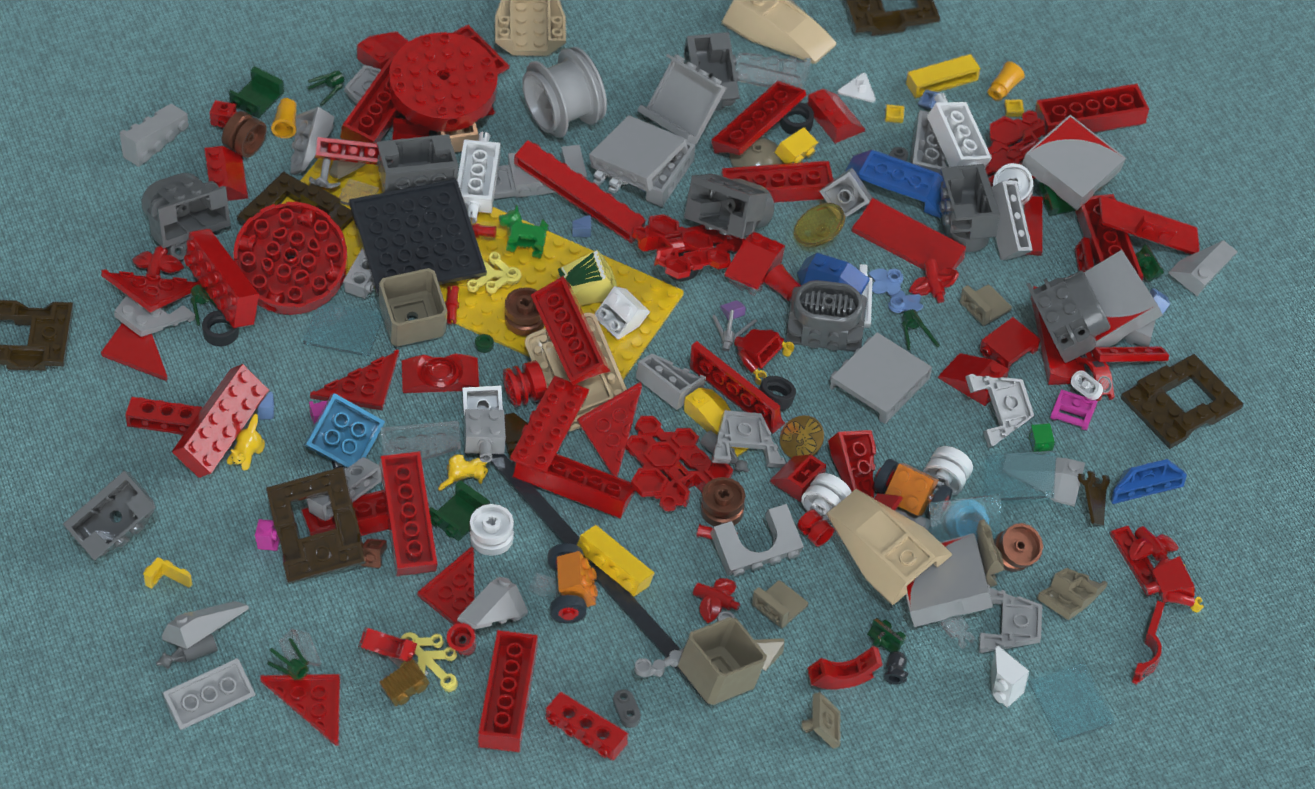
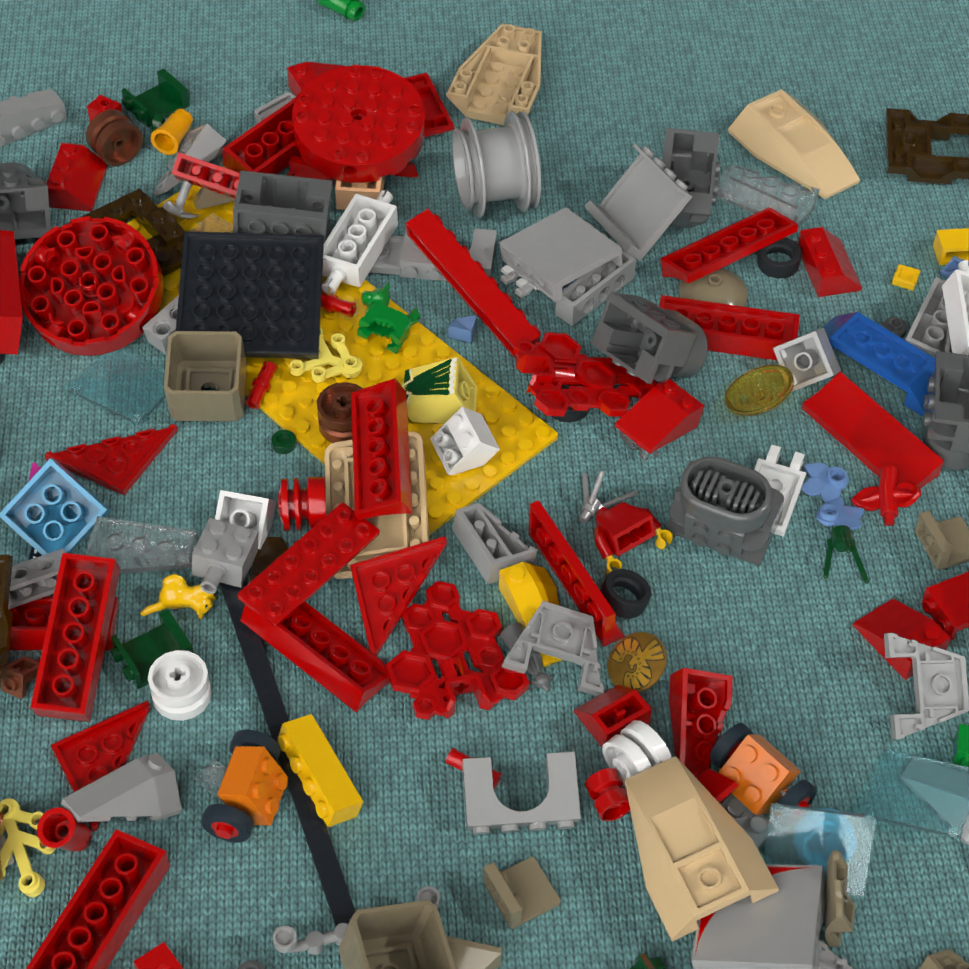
camera: 20 degrees right, 0 degrees up
(269, 113) = (158, 120): none -> dark green tile
(332, 79) = (249, 101): dark green plant -> none
(439, 374) = (213, 467): red slope -> none
(715, 598) = (436, 859): red plant -> none
(722, 501) = (496, 725): copper wheel -> none
(738, 307) = (613, 472): medium lavender slope -> none
(781, 281) = (684, 447): red plant -> none
(797, 147) = (764, 289): yellow brick -> none
(830, 269) = (755, 452): blue wedge -> none
(859, 89) = (871, 239): white piece -> none
(882, 376) = (775, 605): light grey panel -> none
(950, 468) = (821, 758): white wheel -> none
(1019, 546) = (900, 901): copper wheel -> none

